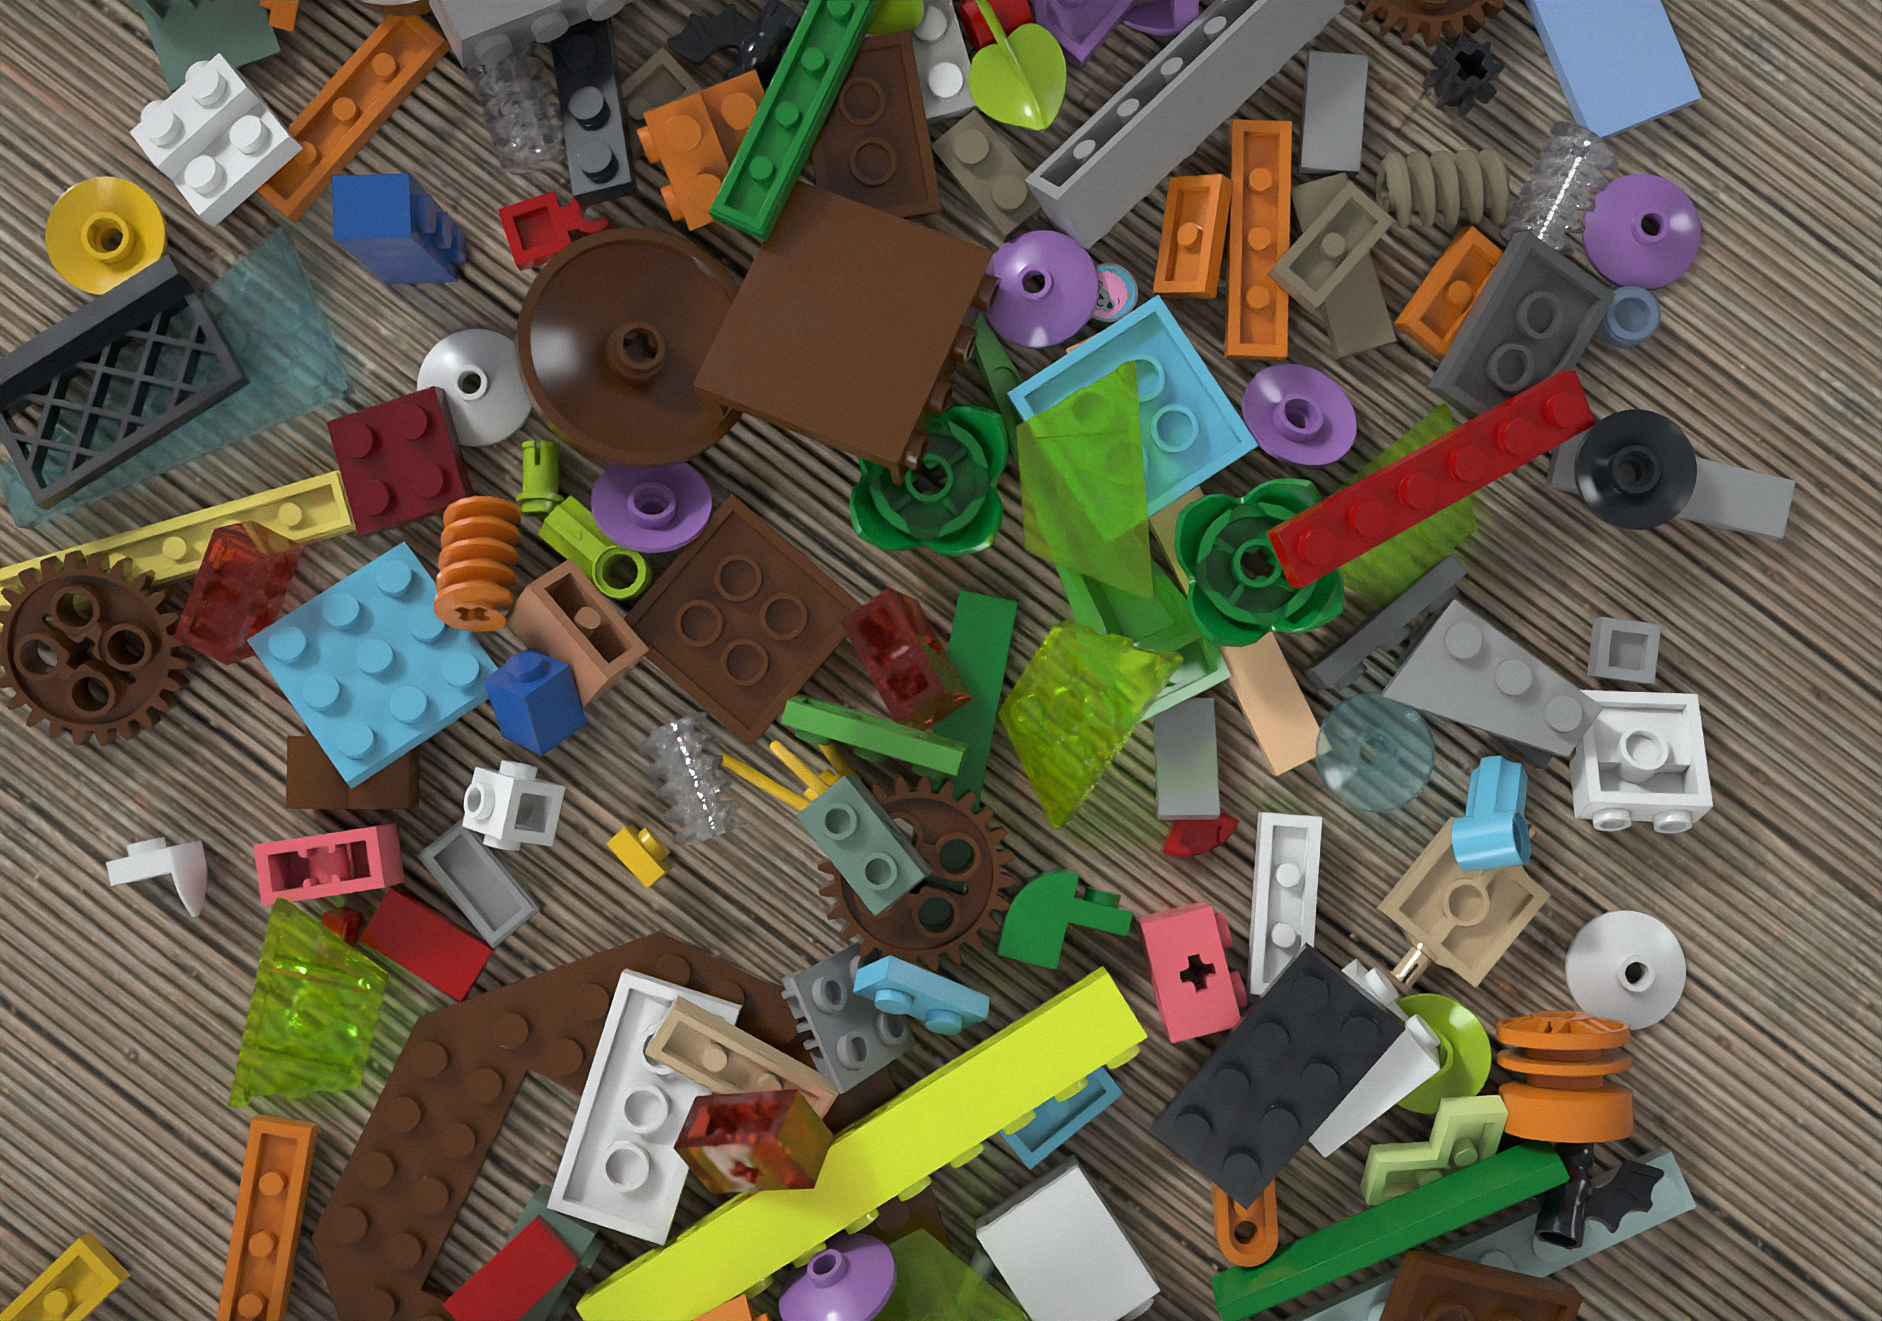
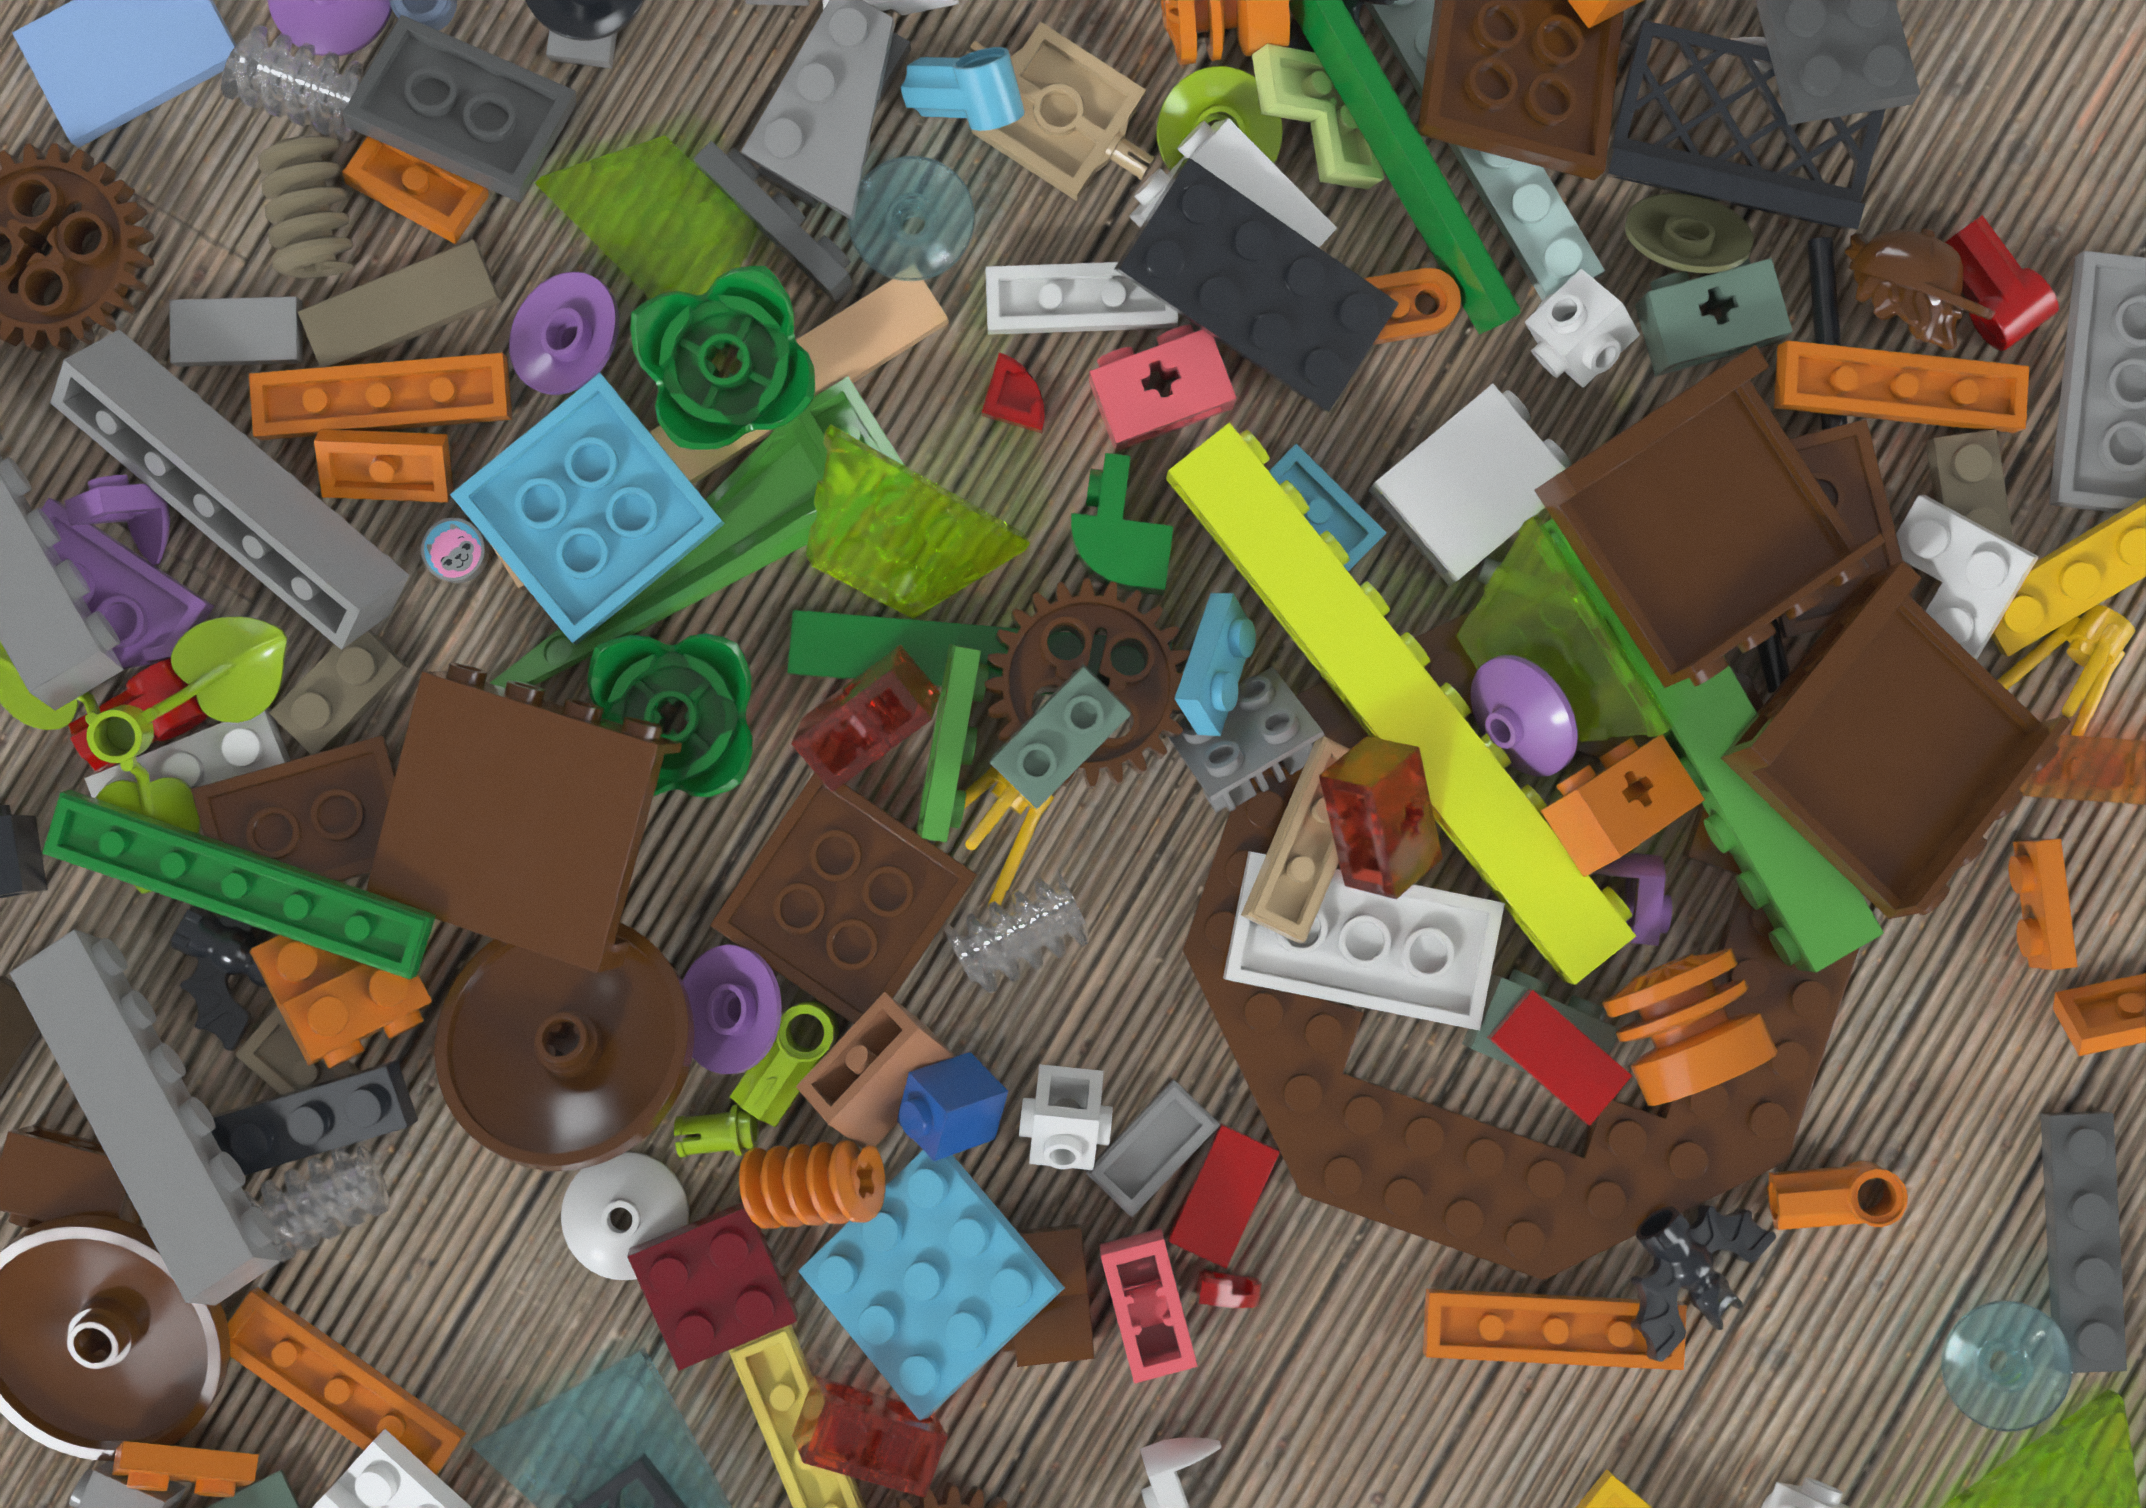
camera: 90 degrees left, 0 degrees up
(307, 1012) = (1308, 1308): clear neon green wing -> none
(396, 229) = (462, 1307): blue brick -> none
(544, 227) = (446, 1161): red plate -> none
(642, 853) = (1101, 976): yellow plate -> none
(1063, 303) = (472, 596): medium lavender dish -> none
(1088, 484) = (660, 545): clear neon green wing -> none
(1186, 761) = (942, 414): light grey tile -> none
(1331, 247) = (381, 318): dark tan plate -> none
(1430, 478) = (615, 187): red plate -> none
(1474, 60) = (164, 186): black gear -> none

